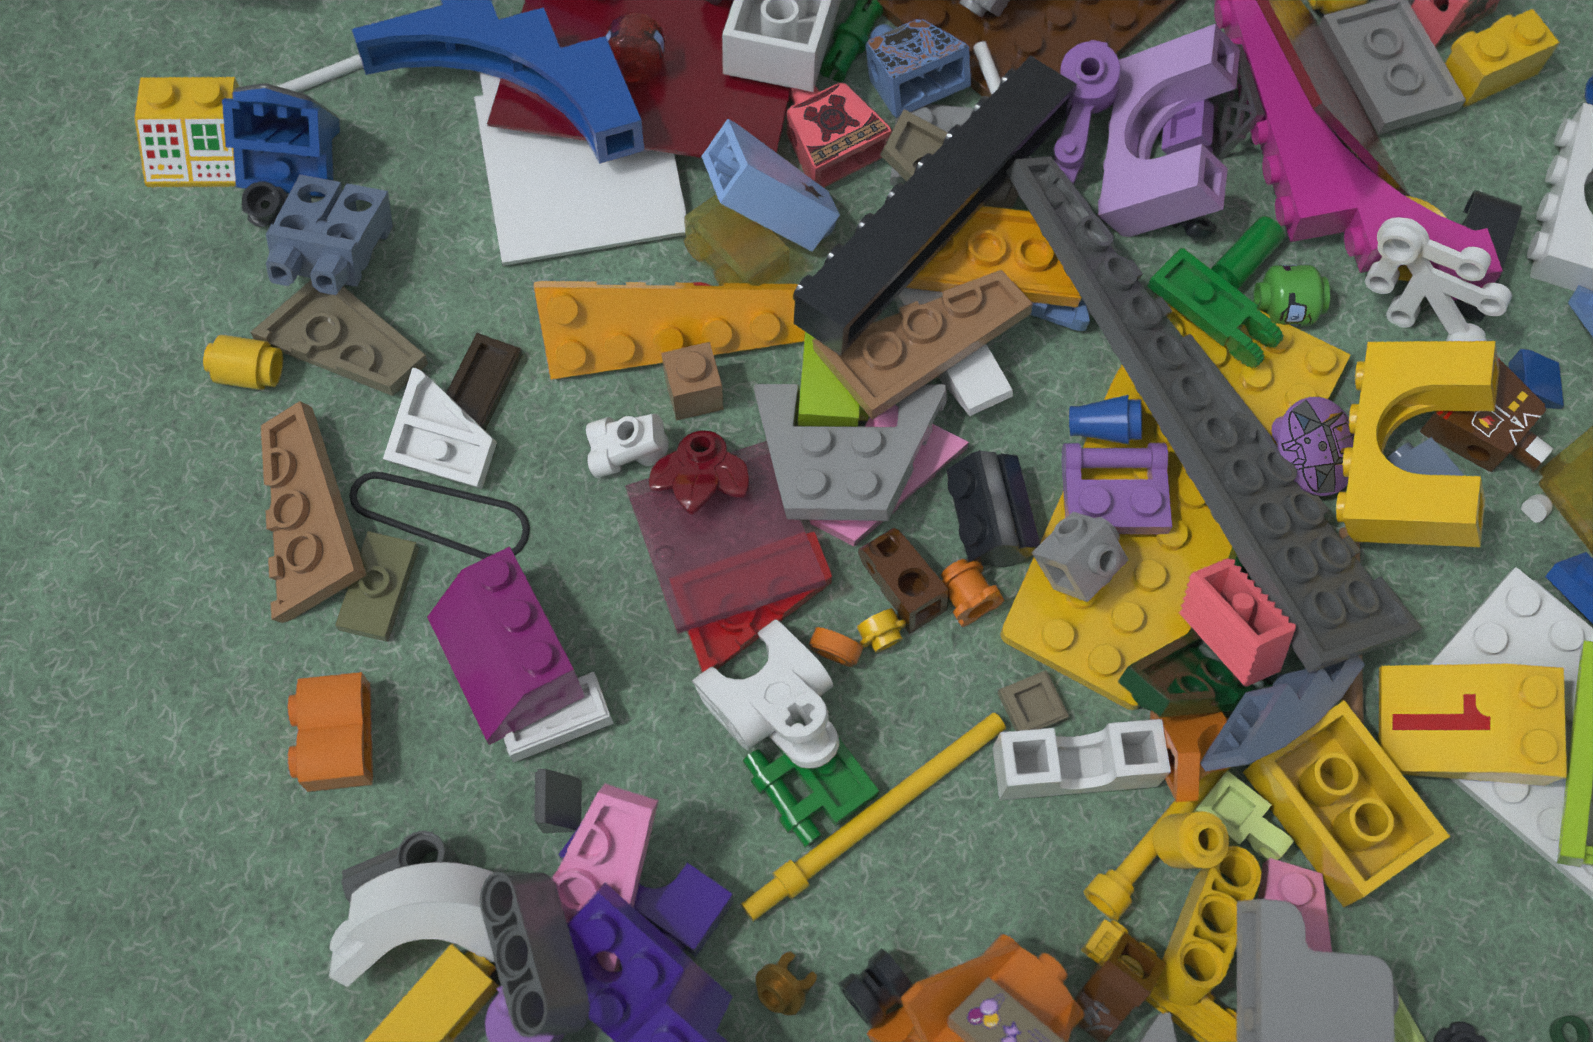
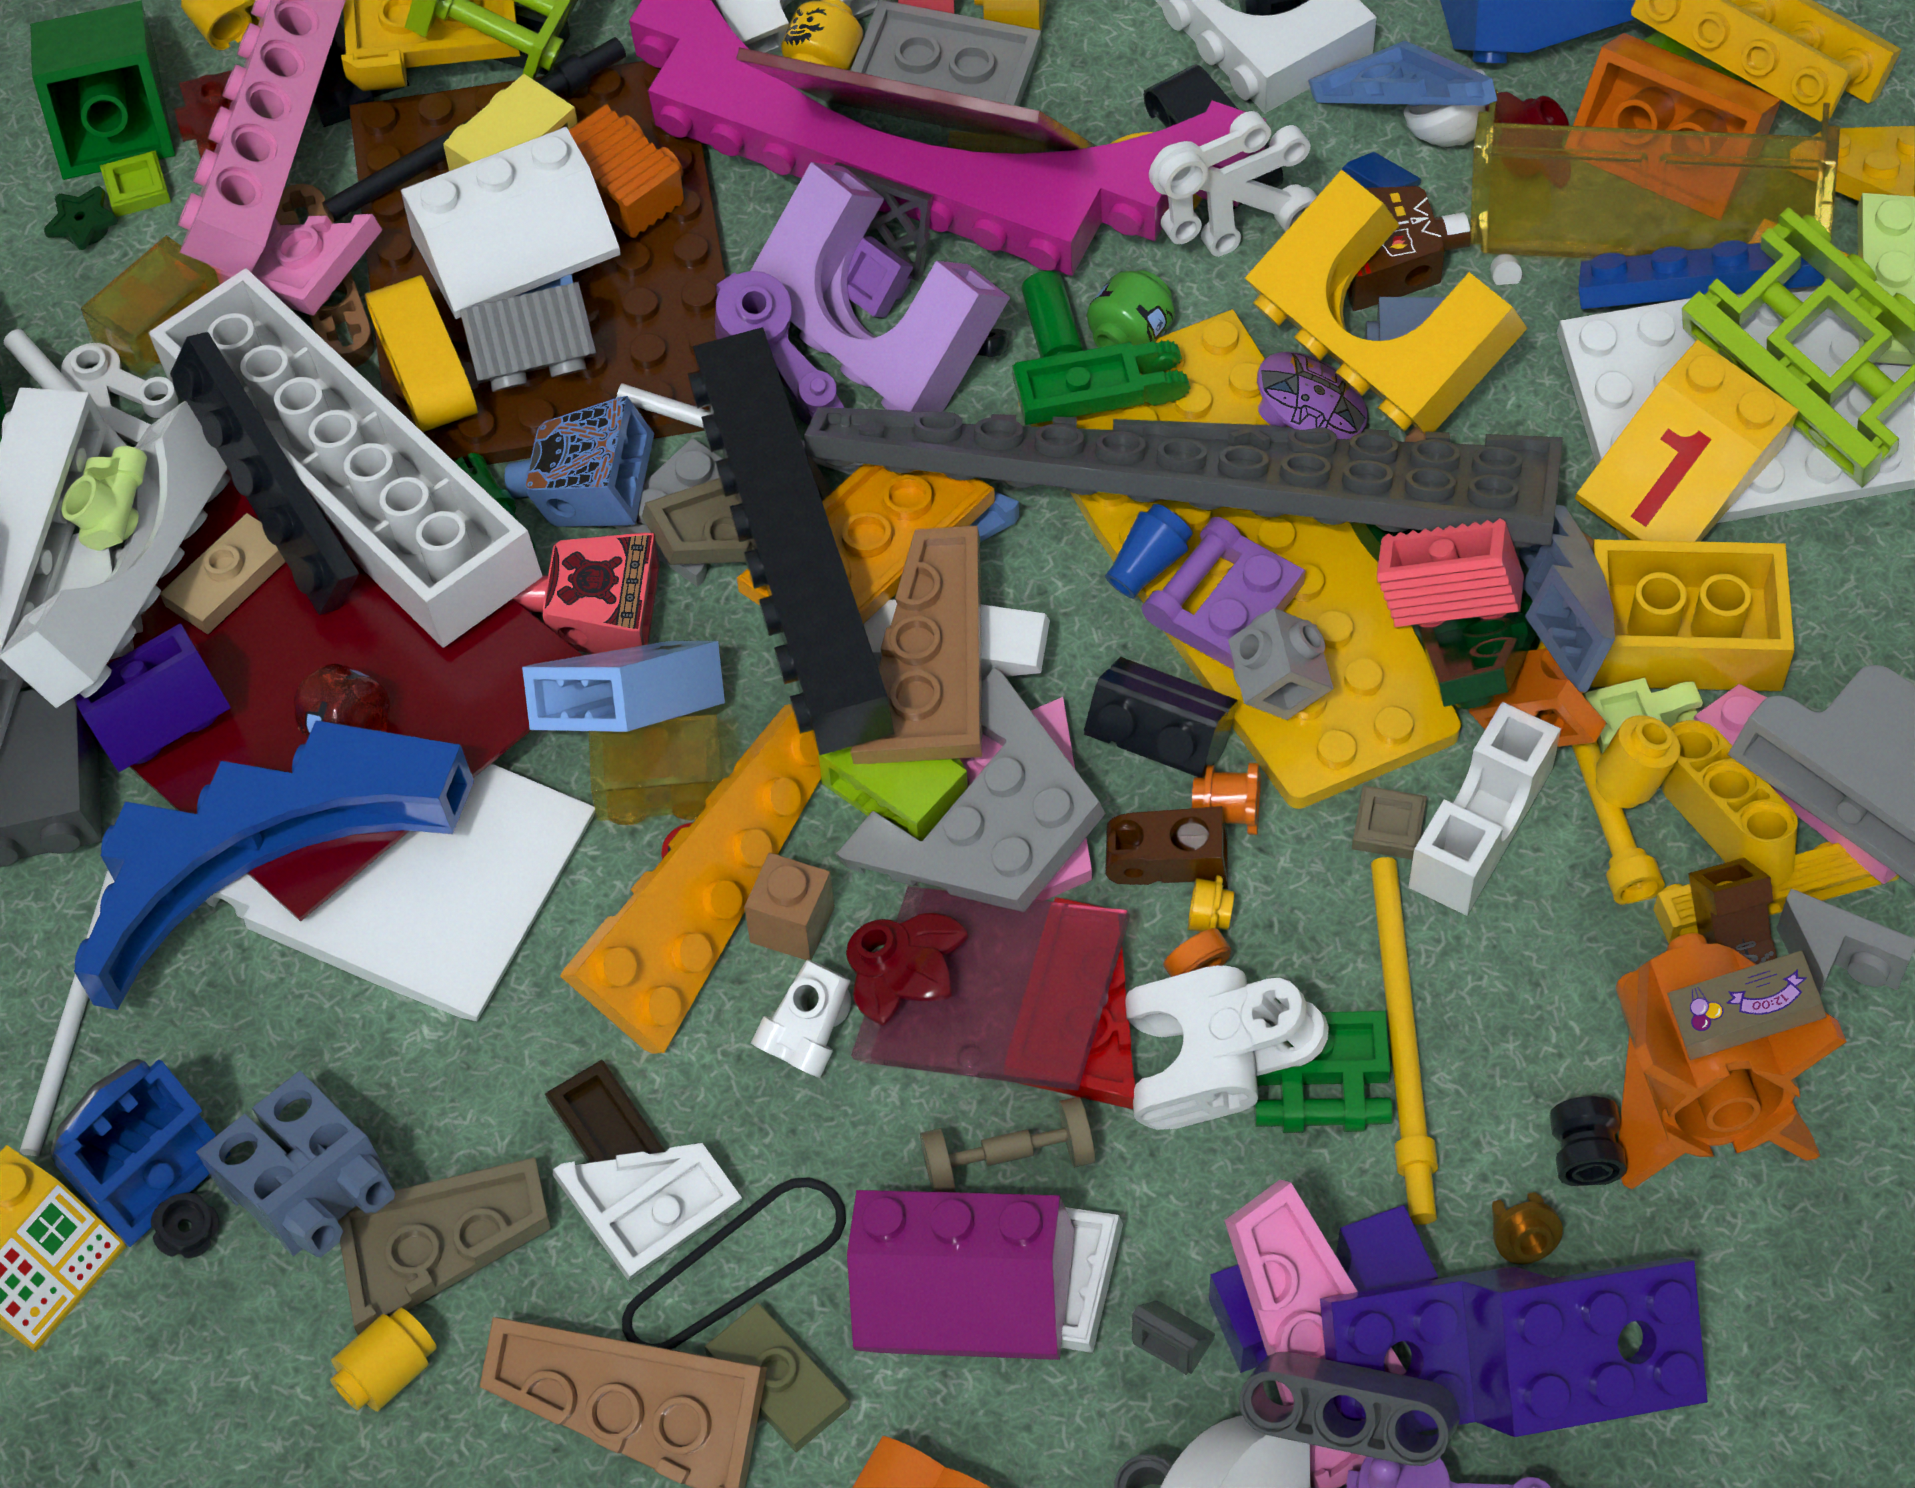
camera: 50 degrees left, 10 degrees down
(579, 584) = (1010, 1146): none -> dark tan wheel

